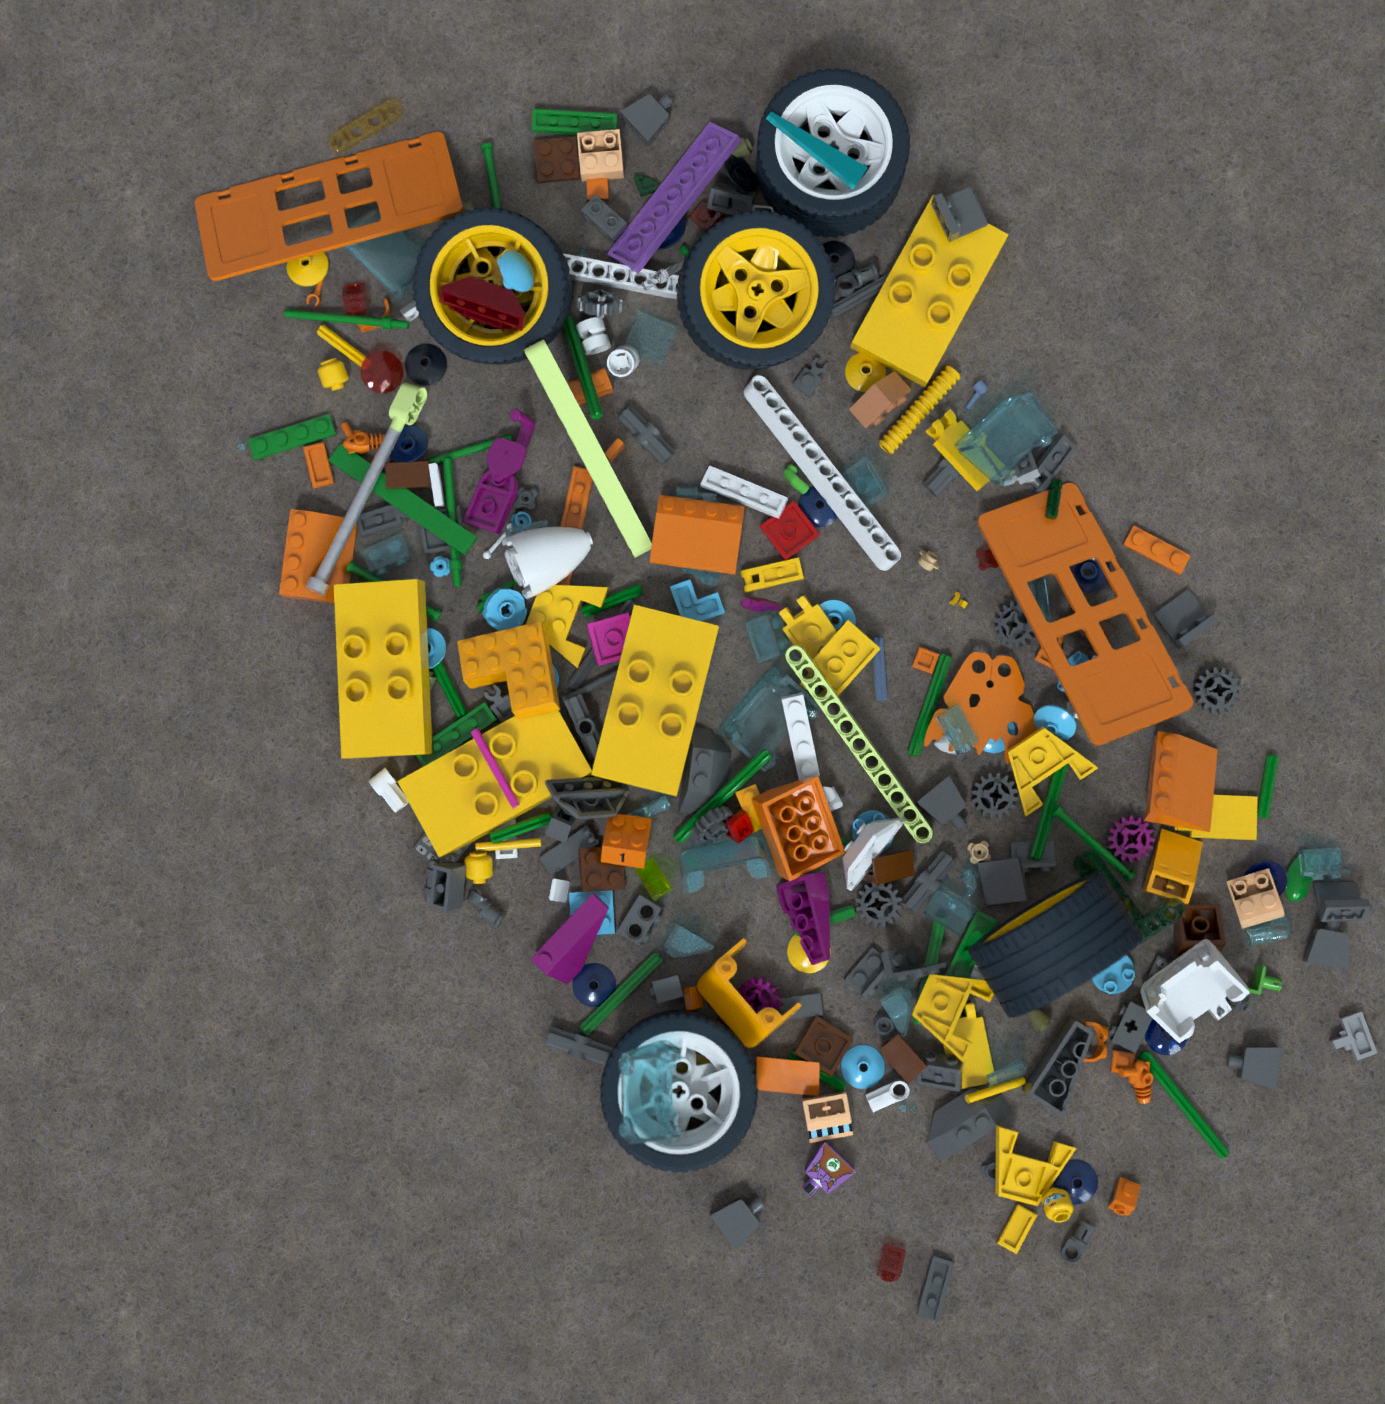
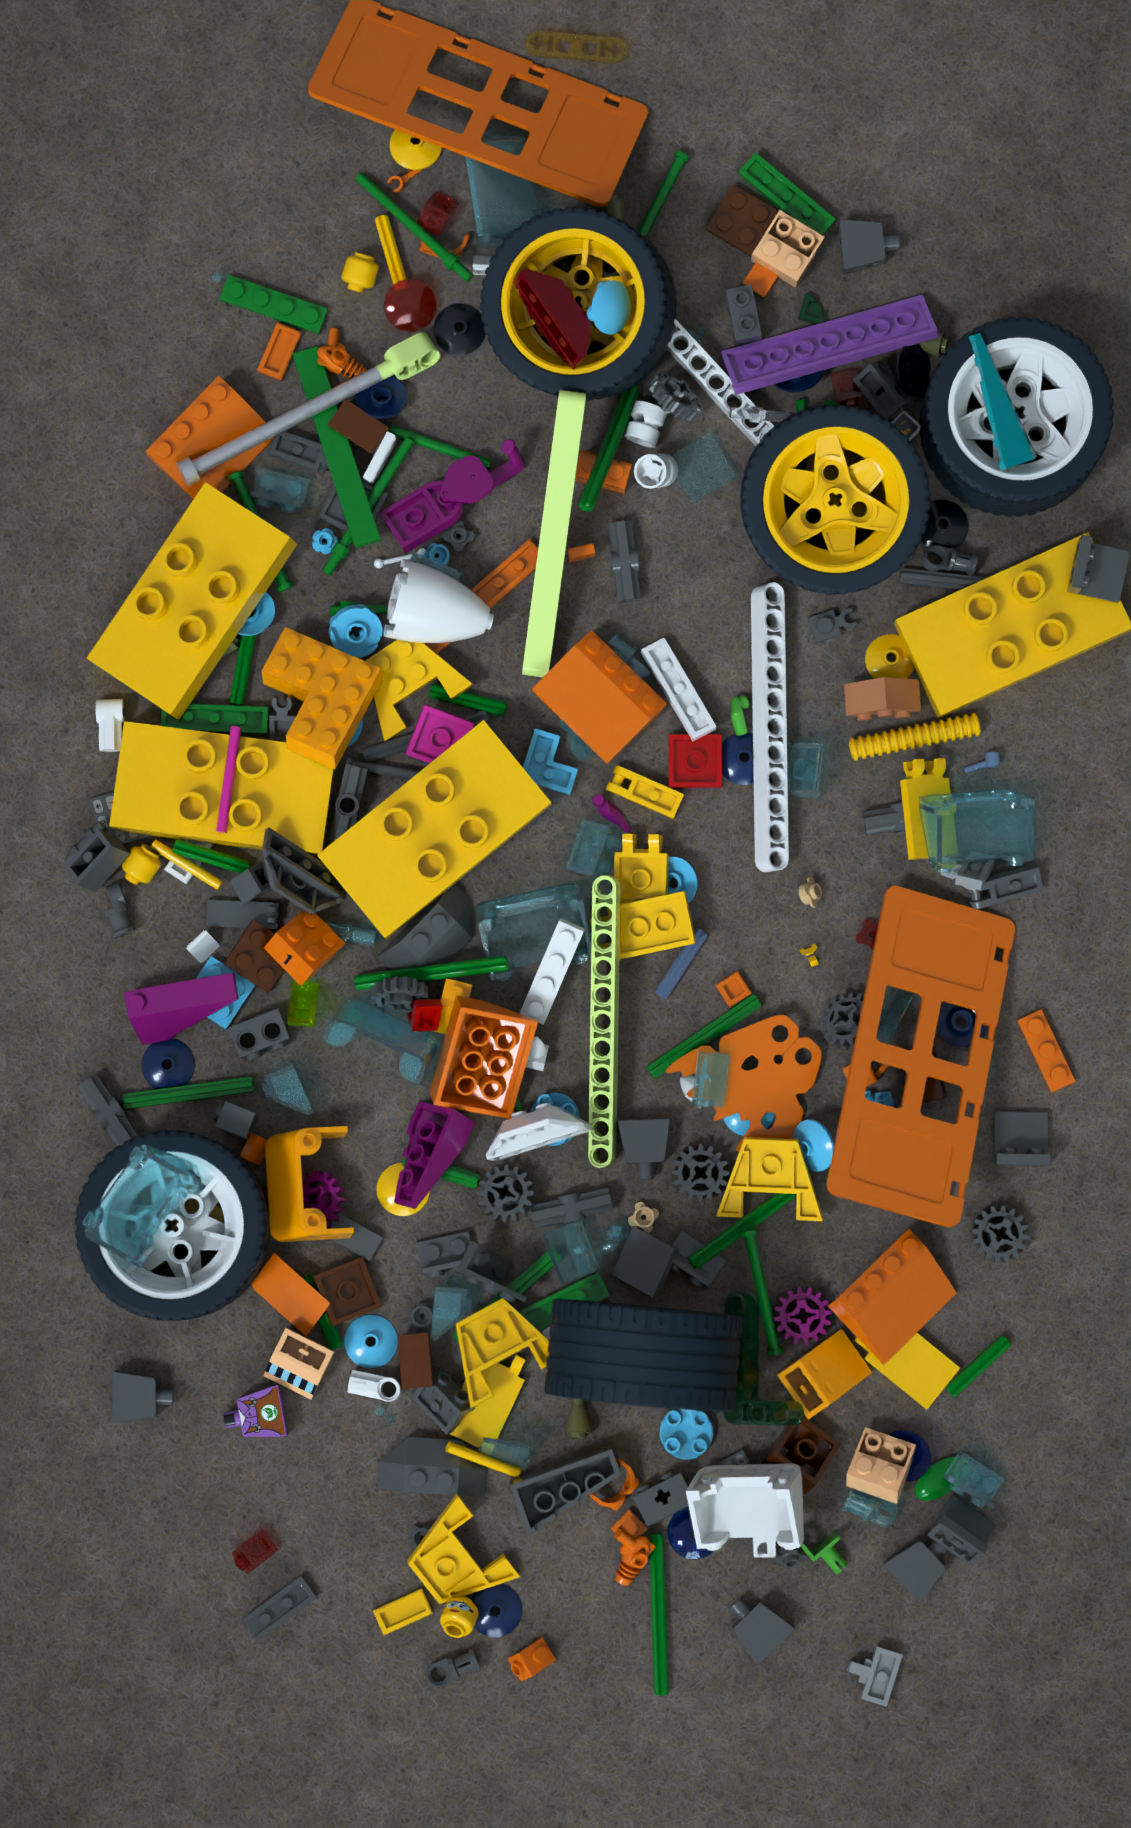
camera: 30 degrees right, 0 degrees up
(891, 867) = (544, 1166): reddish brown panel -> none
(1053, 499) = (980, 923): dark green axle -> none

